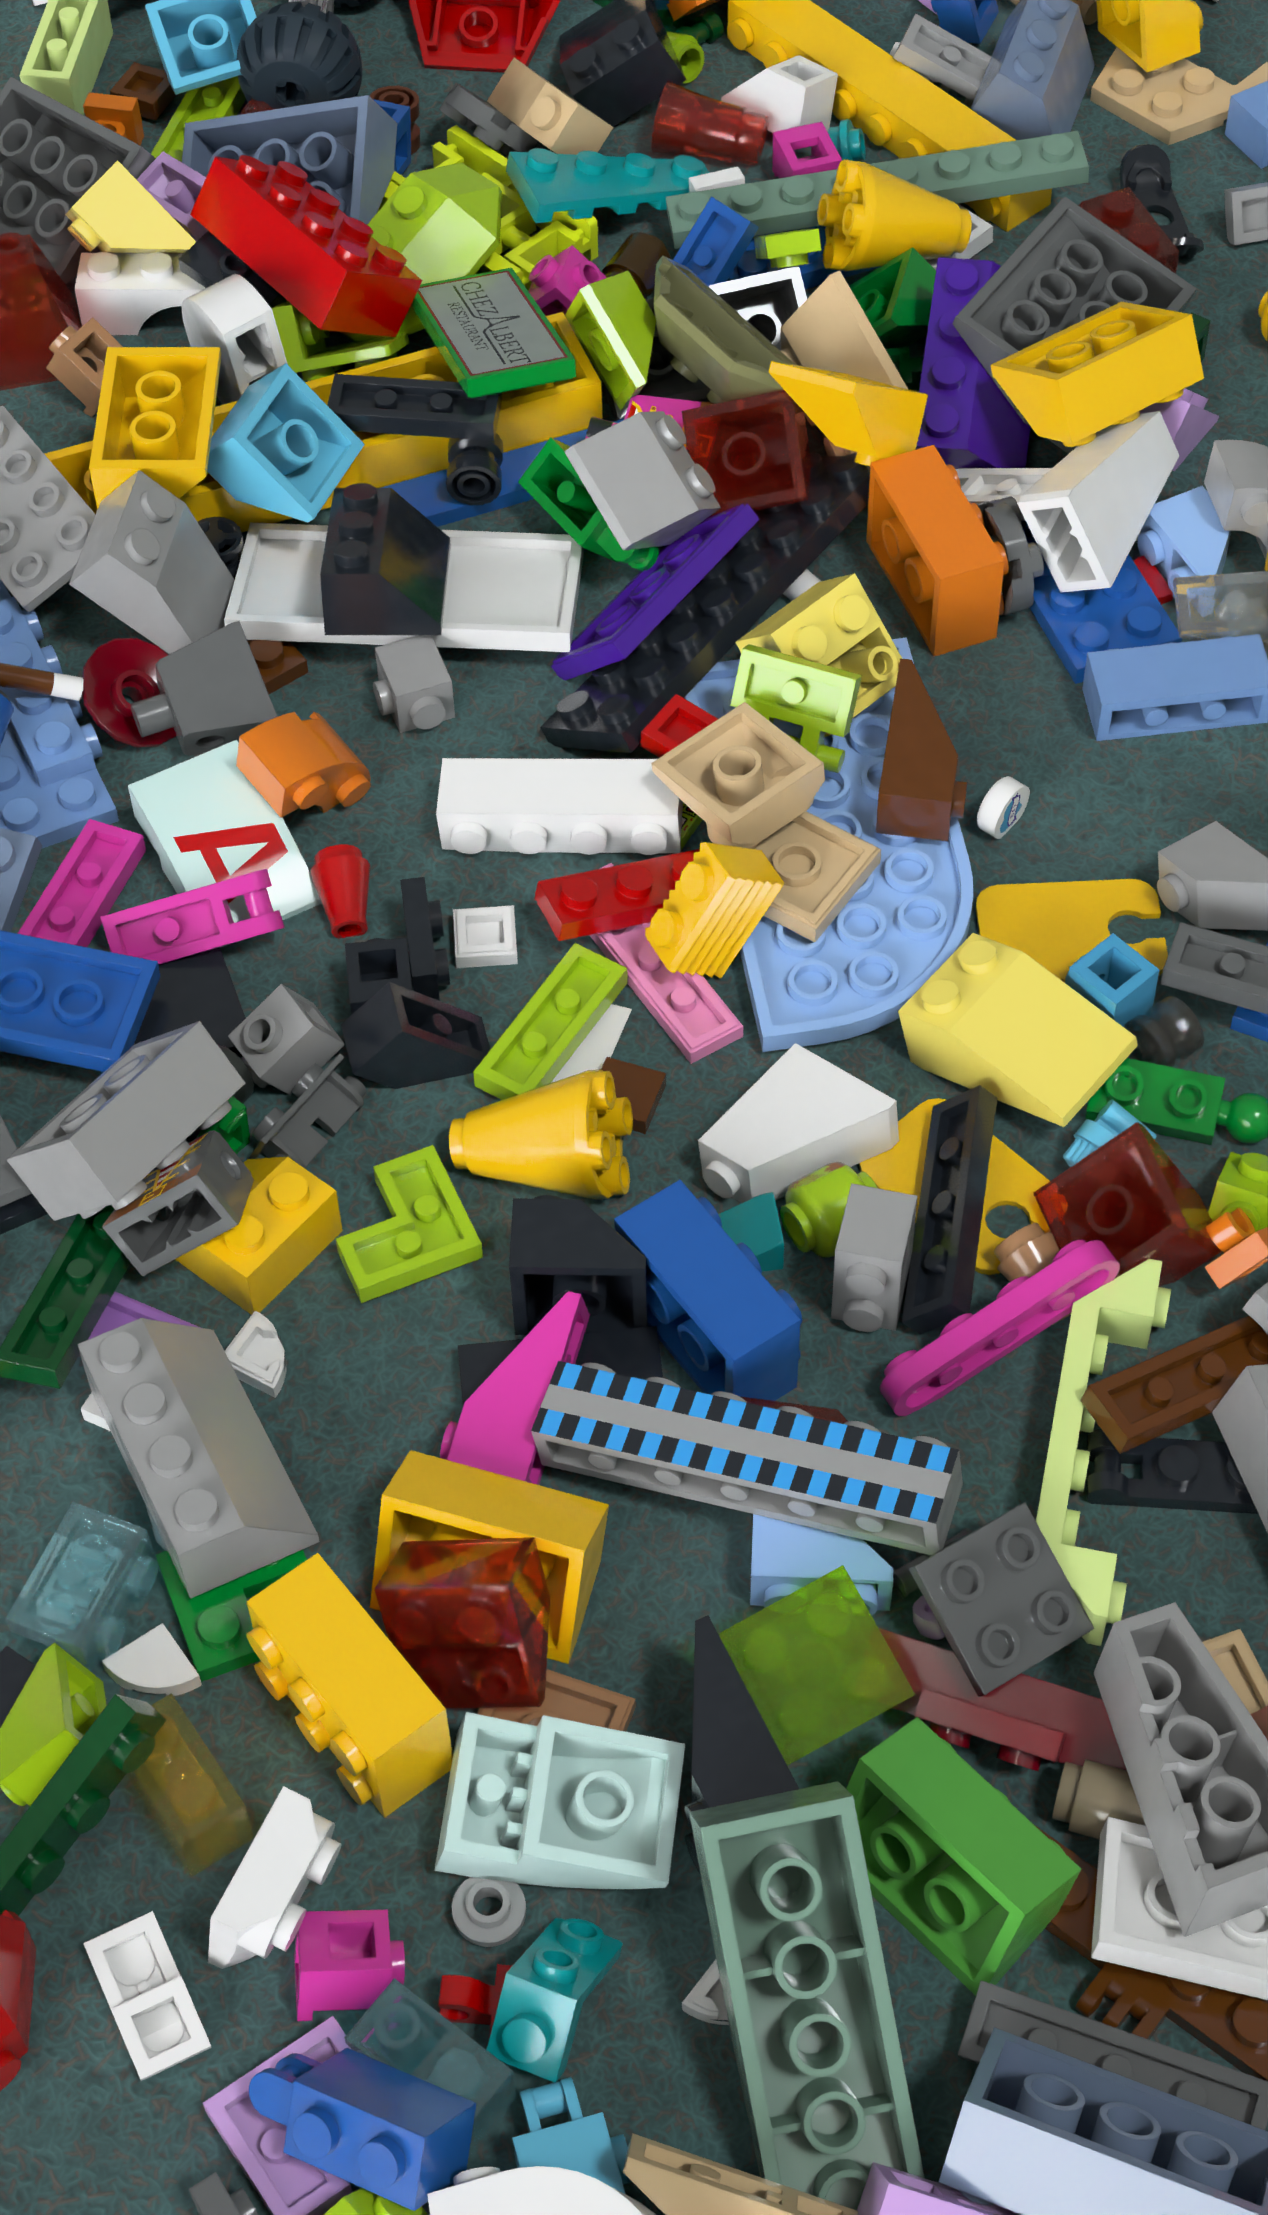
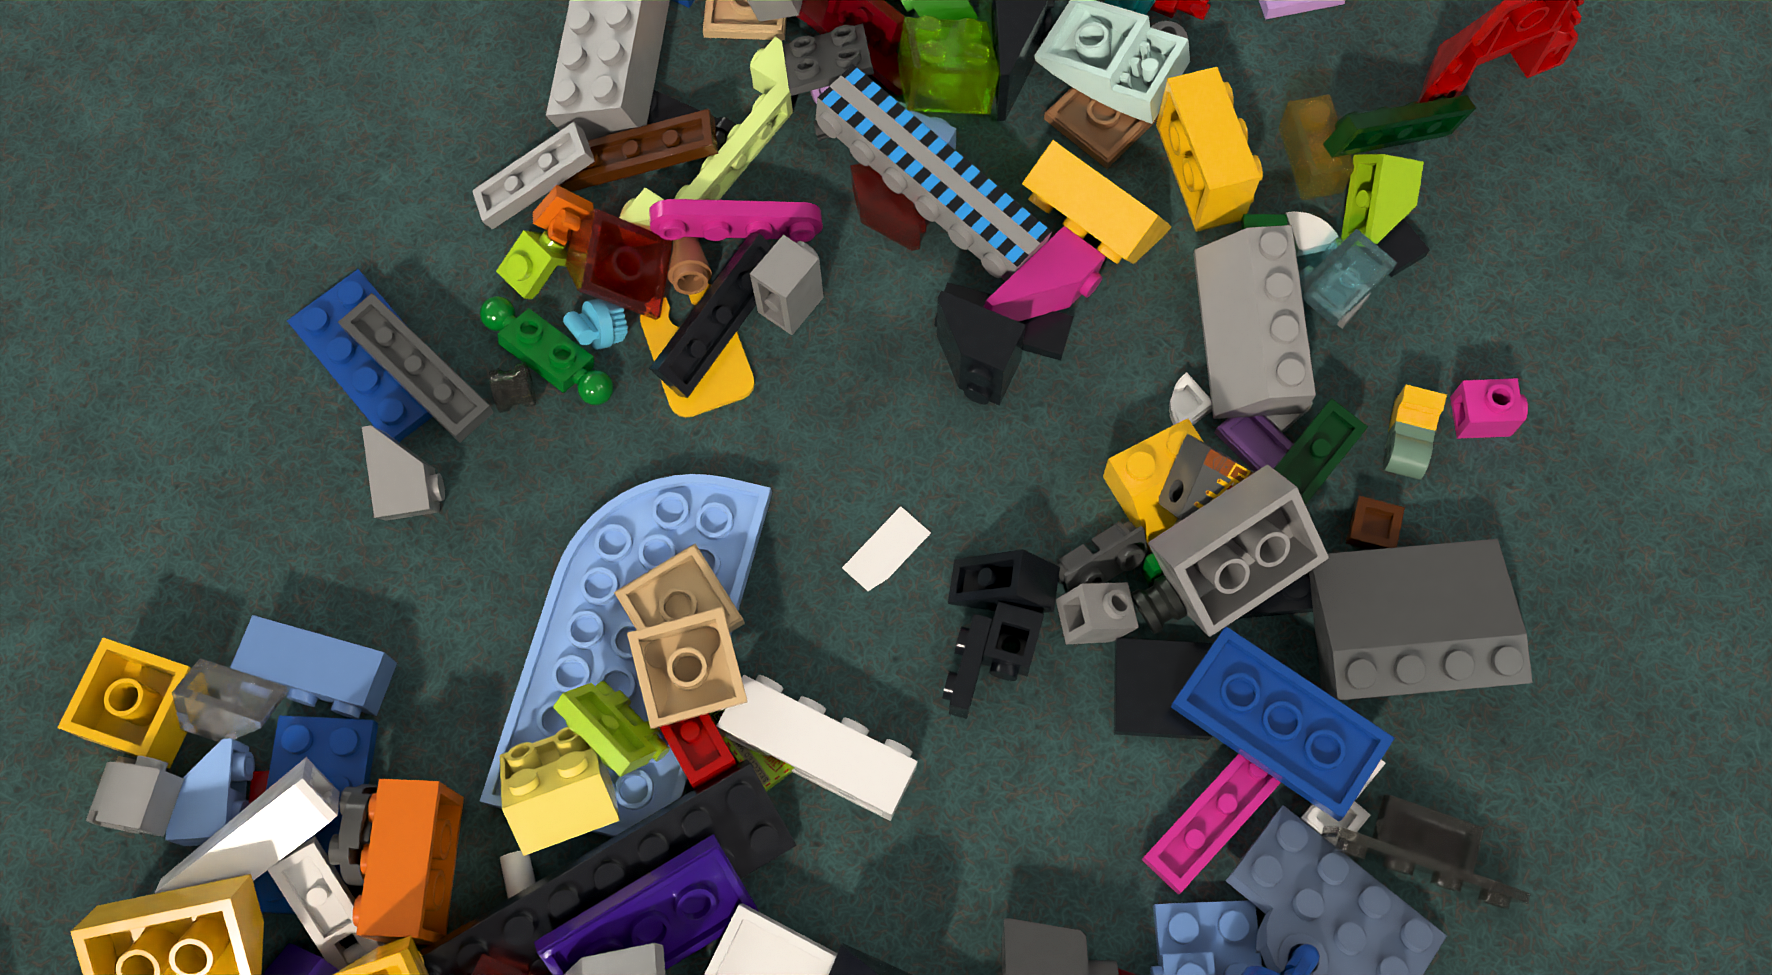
camera: 155 degrees left, 15 degrees up
(147, 1996) = (1359, 65): white slope -> none
(193, 920) = (1131, 747): dark pink plate -> none
(217, 827) = (1084, 822): light aqua slope -> none
(264, 1893) = (1287, 61): white slope -> none
(301, 764) = (1000, 850): orange brick -> none
(343, 886) = (1006, 747): red cone -> none
(344, 1960) = (1246, 18): dark pink brick -> none
(413, 684) = (880, 923): light grey brick -> none
(421, 1240) = (1052, 438): lime plate -> none
(470, 1619) = (1129, 159): clear red slope -> none
(485, 936) = (918, 668): white tile -> none
(551, 1024) = (905, 564): lime plate -> none
(551, 1137) = (948, 461): yellow cone -> none
(609, 896) = (805, 642): red plate -> none
(641, 1086) = (877, 496): reddish brown tile -> none
(680, 1003) = (812, 599): bright pink tile -> none
(712, 1298) = (901, 295): blue brick -> none
(713, 909) = (758, 576): yellow brick -> none
(759, 1228) = (849, 360): teal slope -> none
(793, 1124) = (786, 409): white slope -> none
(817, 1207) = (790, 352): lime head -> none
(919, 766) = (548, 648): reddish brown slope -> none
(1002, 806) = (503, 613): white tile -> none
(1014, 1030) = (608, 412): light yellow slope -> none
(1066, 919) = (530, 507): yellow piece -> none
(1115, 980) = (528, 421): dark azure brick -> none

